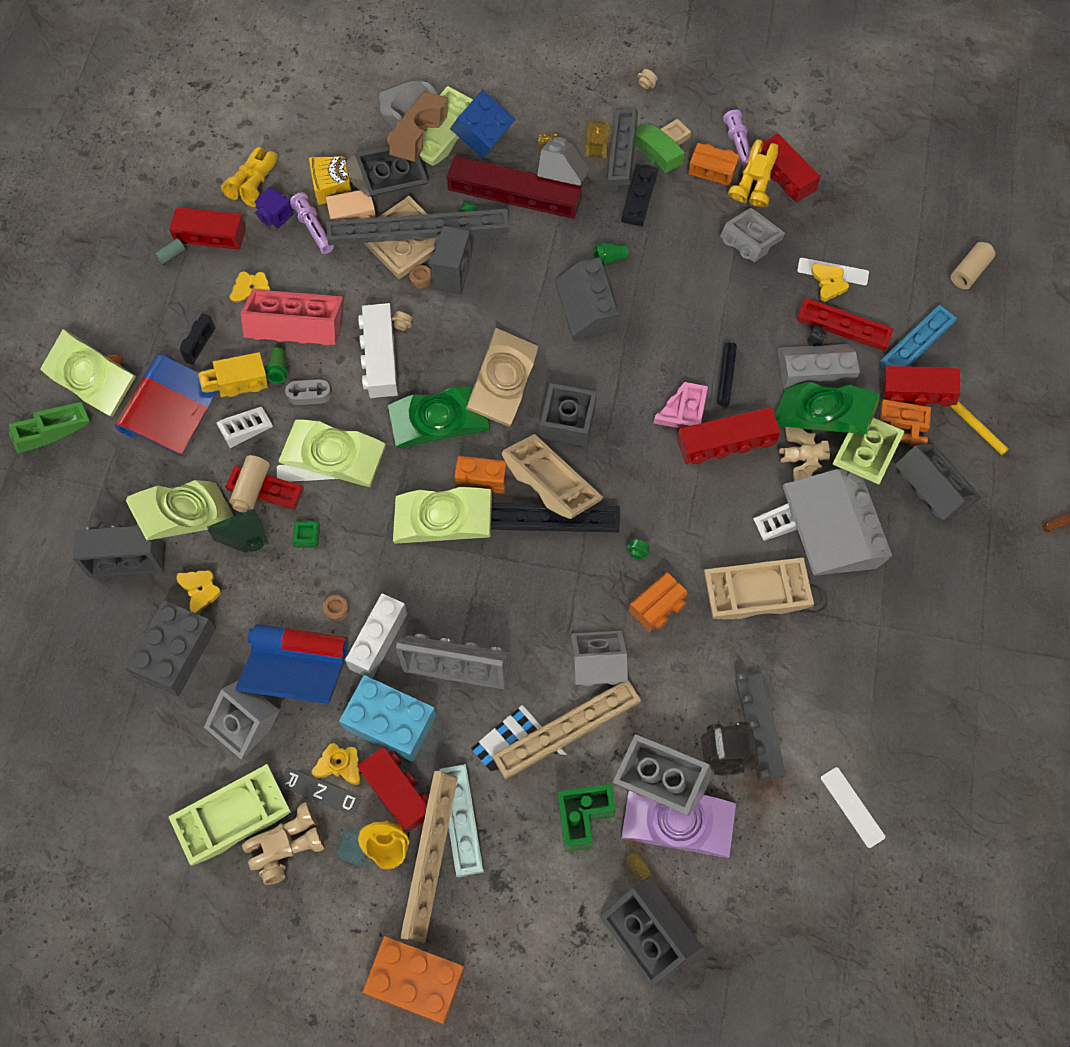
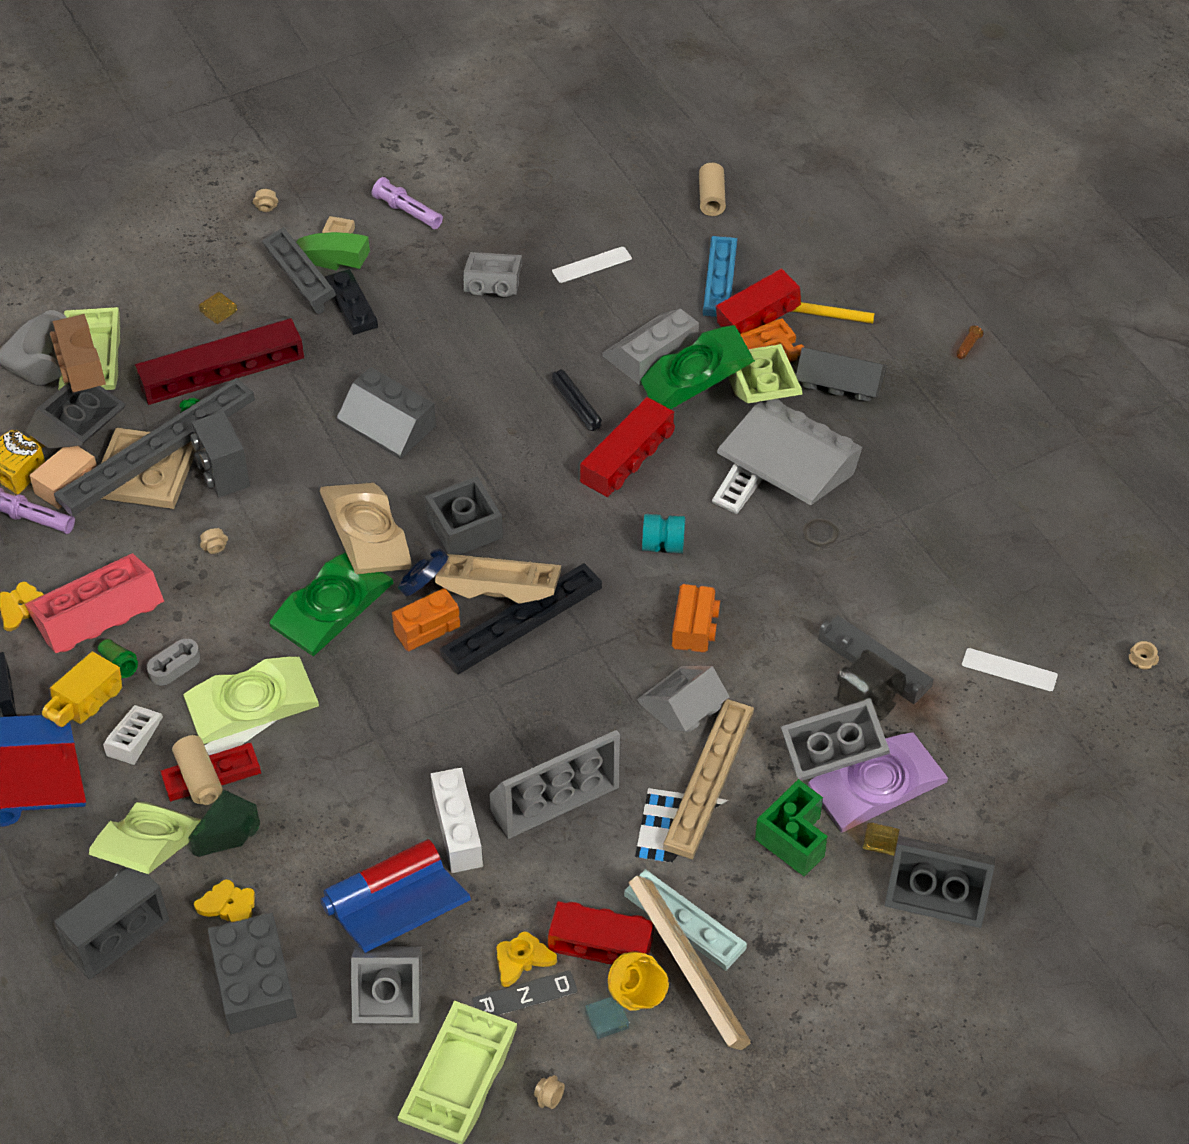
camera: 40 degrees left, 15 degrees down
(278, 841) = (529, 1058): tan piece -> none
(306, 534) = (293, 786): green tile -> none
(335, 608) = (387, 828): medium nougat tile -> none
(379, 351) = (216, 579): white brick -> none
(388, 718) = (532, 877): medium azure brick -> none
(414, 980) = (774, 1074): orange brick -> none
(420, 276) = (194, 493): medium nougat tile -> none
(442, 515) = (419, 678): yellowish green slope -> none
(482, 123) = (137, 321): blue brick -> none
(506, 438) = (422, 572): none -> dark blue tile
(562, 162) = (250, 312): light grey slope -> none
(597, 139) = (265, 276): clear yellow brick -> none
(610, 252) = (374, 359): green cone -> none
(638, 549) = (633, 588): green plate -> none
(684, 407) = (564, 448): bright pink wing -> none
(695, 524) = (663, 533): none -> teal wheel
(714, 164) = (401, 235): orange brick -> none
(757, 169) = (451, 214): yellow piece -> none
(758, 589) = (771, 550): tan slope -> none
(791, 170) = (473, 201): red brick -> none
(808, 452) = (707, 418): tan animal -> none
(817, 335) = (628, 321): black plate -> none
(830, 280) = (599, 271): yellow animal -> none
(845, 324) = (645, 298): red plate -> none
(965, 868) = (1146, 650): none -> tan plate

